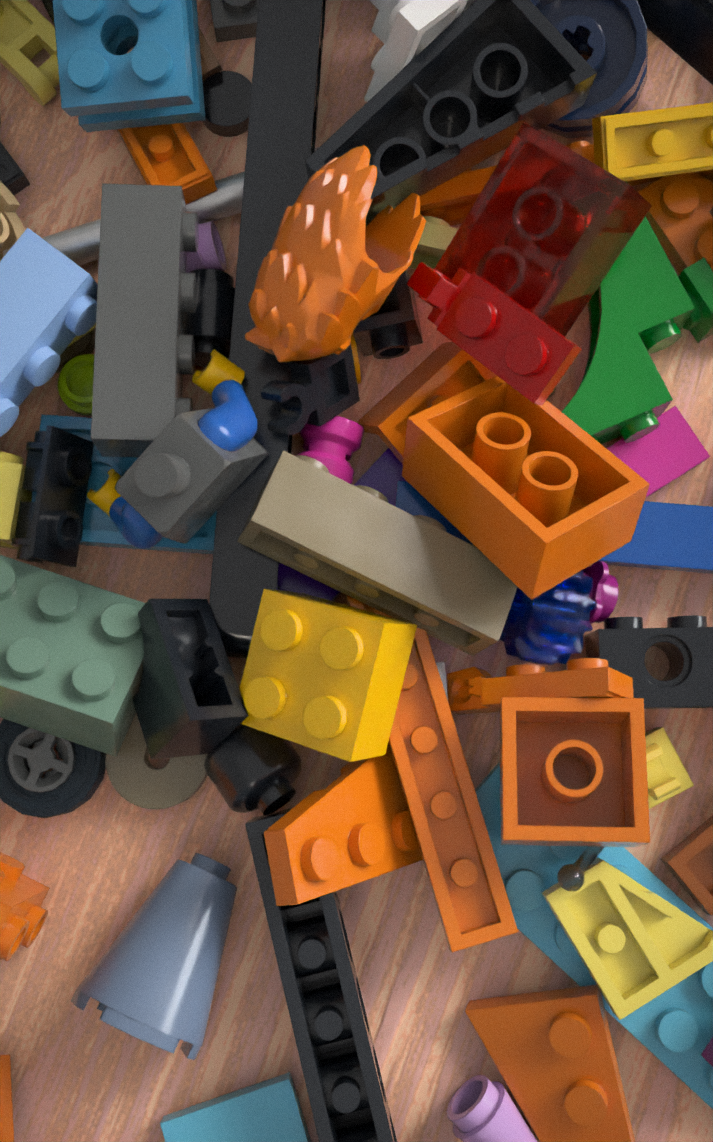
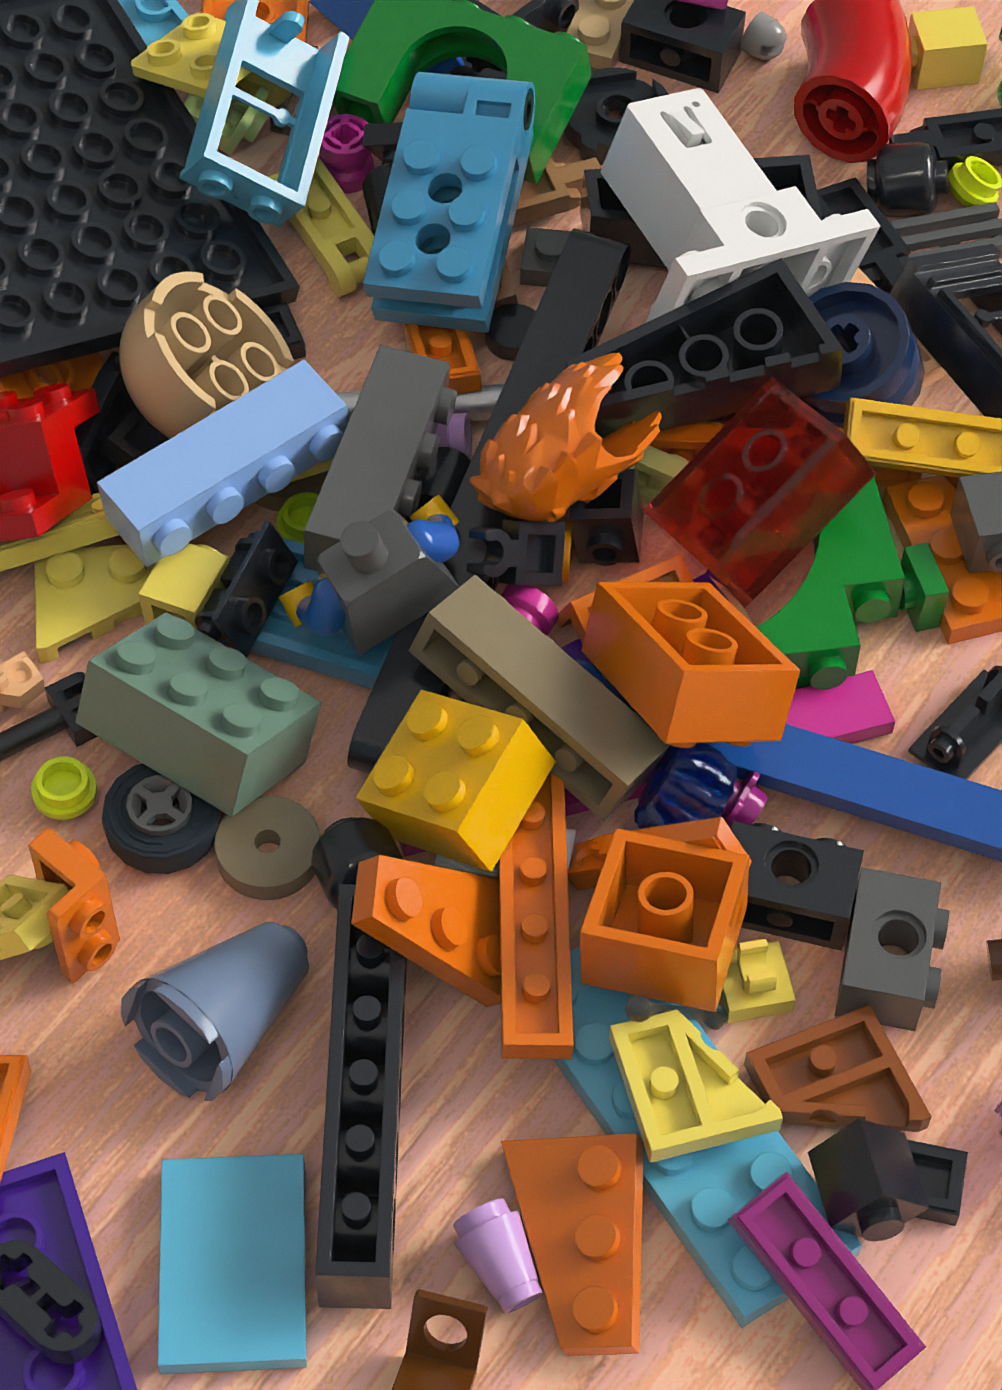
camera: 15 degrees right, 25 degrees down
(187, 683) = (323, 758): black arch -> none
(496, 331) = (701, 537): red hinge -> none

